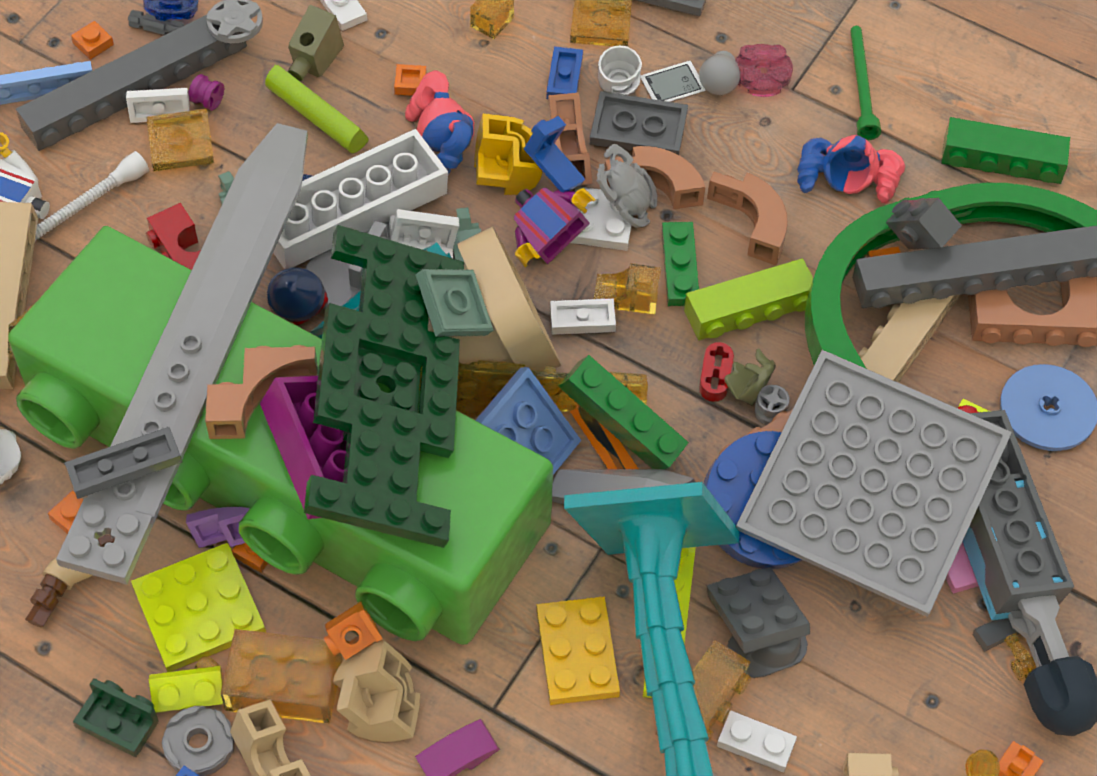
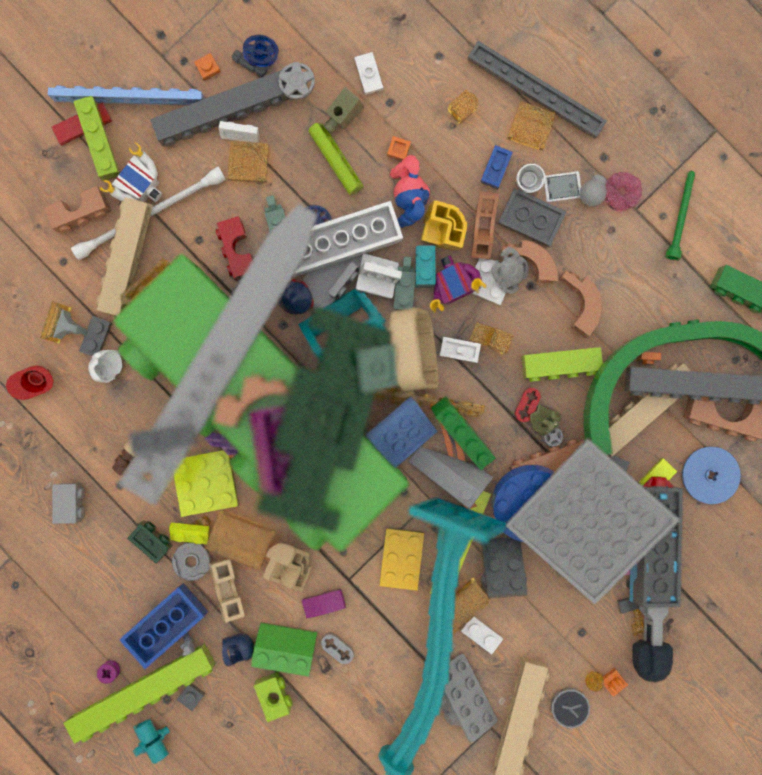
camera: 15 degrees right, 30 degrees up
(65, 511) = (146, 408): orange plate -> none
(206, 92) = (270, 129): magenta wheel -> none
(356, 620) = (279, 537): orange brick -> none
(493, 209) = (425, 266): none -> teal brick
(550, 158) = (469, 246): blue bracket -> none
(679, 261) = (528, 324): green plate -> none
(850, 166) = (651, 282): hair -> none
(923, 223) = (679, 355): dark grey brick -> none

